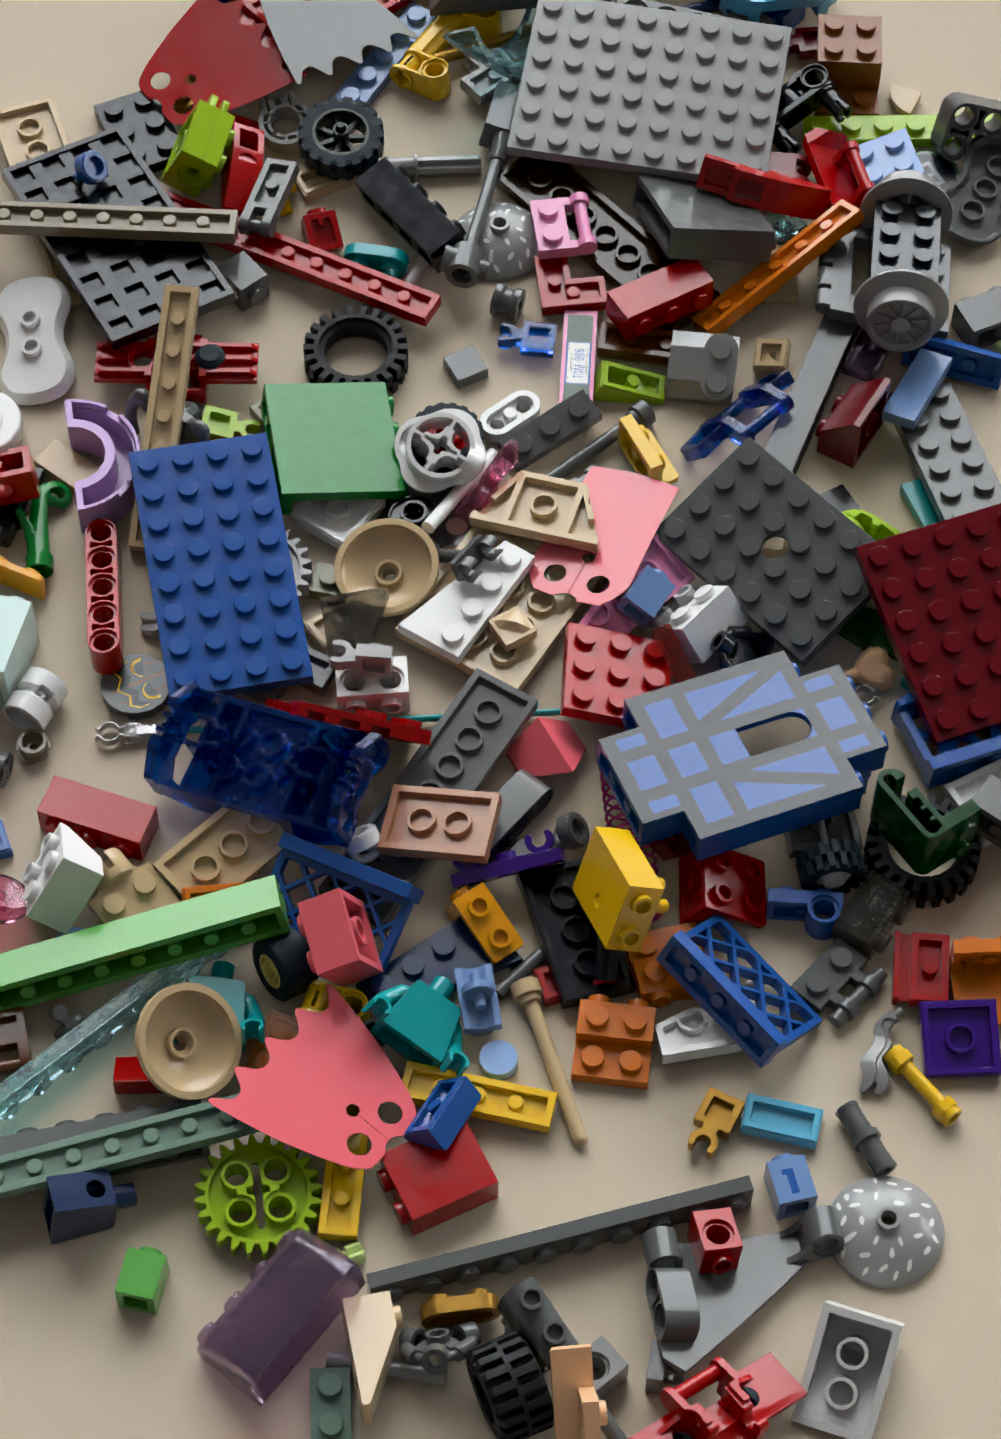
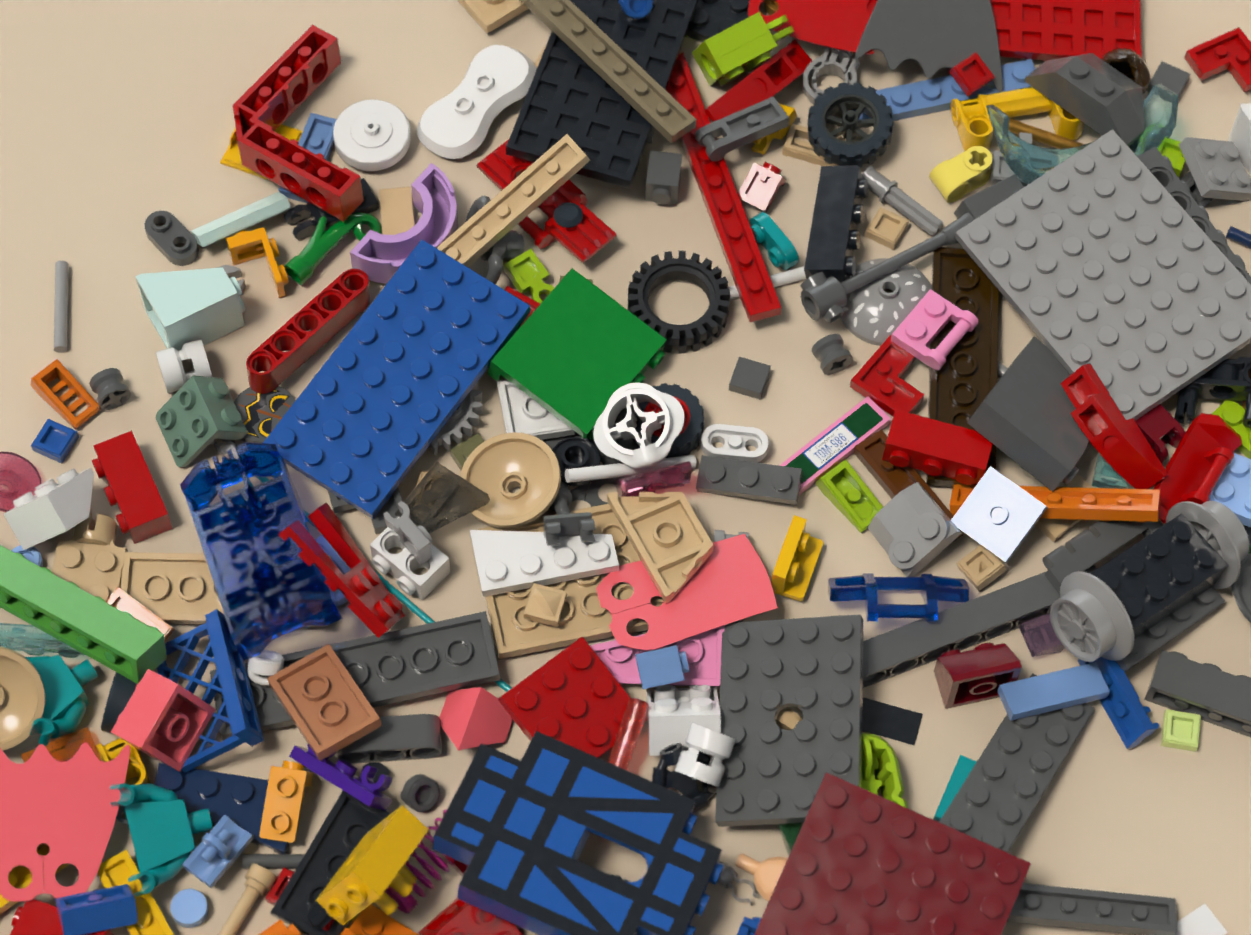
camera: 45 degrees right, 5 degrees up
(32, 738) = (150, 390): dark tan plate -> none
(92, 728) = (197, 416): none -> sand green bracket
(389, 37) = (971, 74): none -> red tile
(444, 190) = (886, 228): none -> tan tile
(455, 111) = (962, 173): none -> light yellow piece
(534, 338) = (820, 399): clear blue plate -> none
(642, 414) = (824, 526): dark grey piece -> none
(751, 618) = (711, 743): none -> white wheel
(753, 304) = (998, 514): none -> plate

